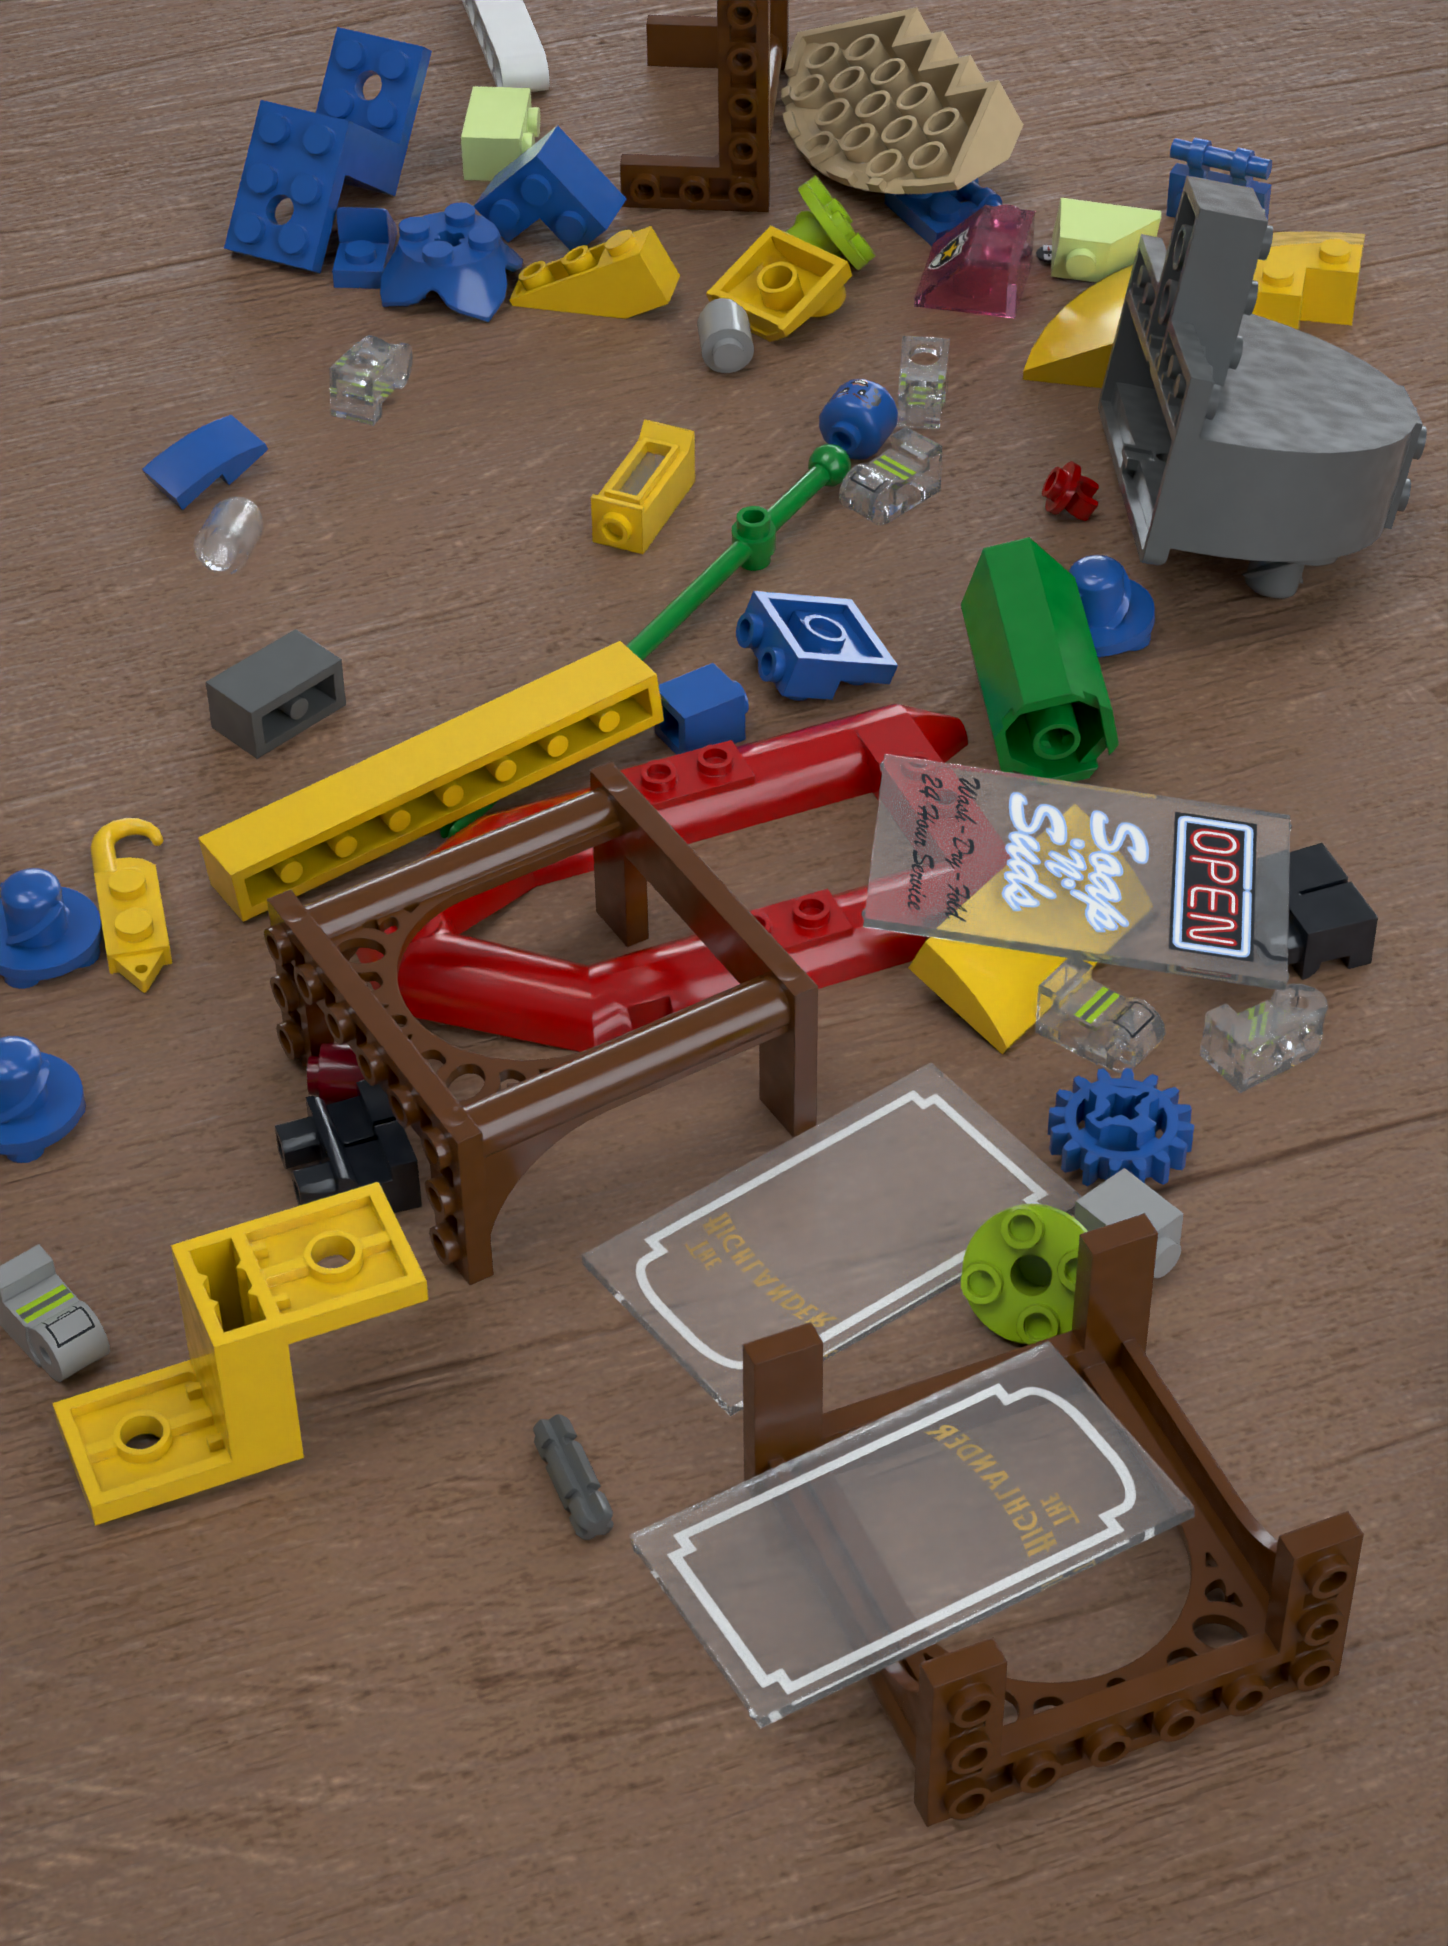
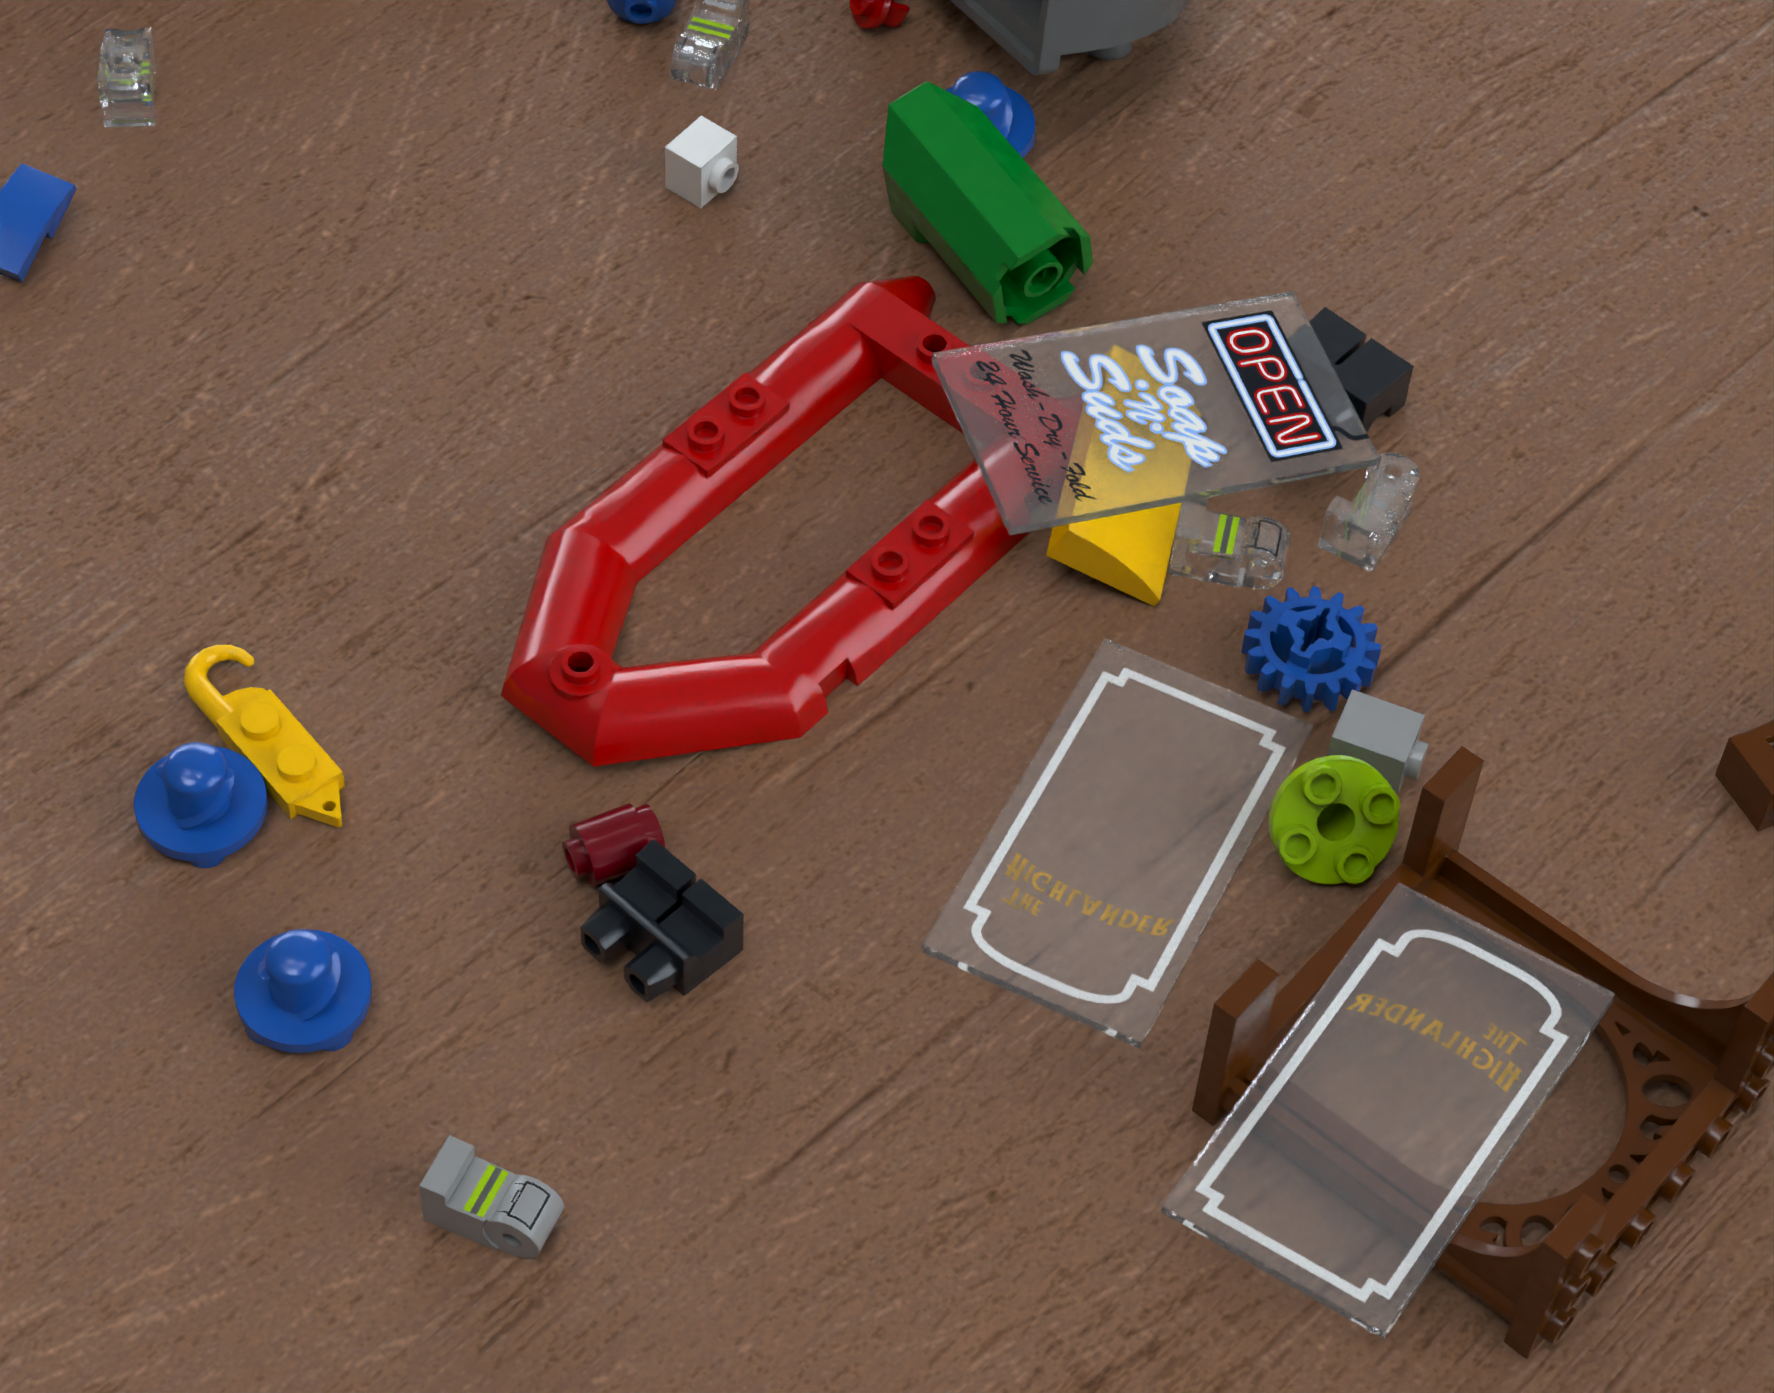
camera: 30 degrees left, 10 degrees up
(229, 535) = (102, 300): clear brick -> none
(241, 1306) = (729, 1174): yellow bracket -> none
(276, 693) = (268, 462): dark grey brick -> none
(431, 779) = (490, 512): yellow brick -> none
(491, 1140) = (732, 549): reddish brown arch -> none
(573, 1477) = (1052, 1163): dark grey axle -> none
(645, 488) = (482, 119): yellow window -> none
(701, 710) = (688, 350): blue brick -> none
(750, 548) = (621, 151): green bar -> none
(812, 644) = (748, 243): blue plate -> none
(816, 566) = (701, 162): none -> white plate

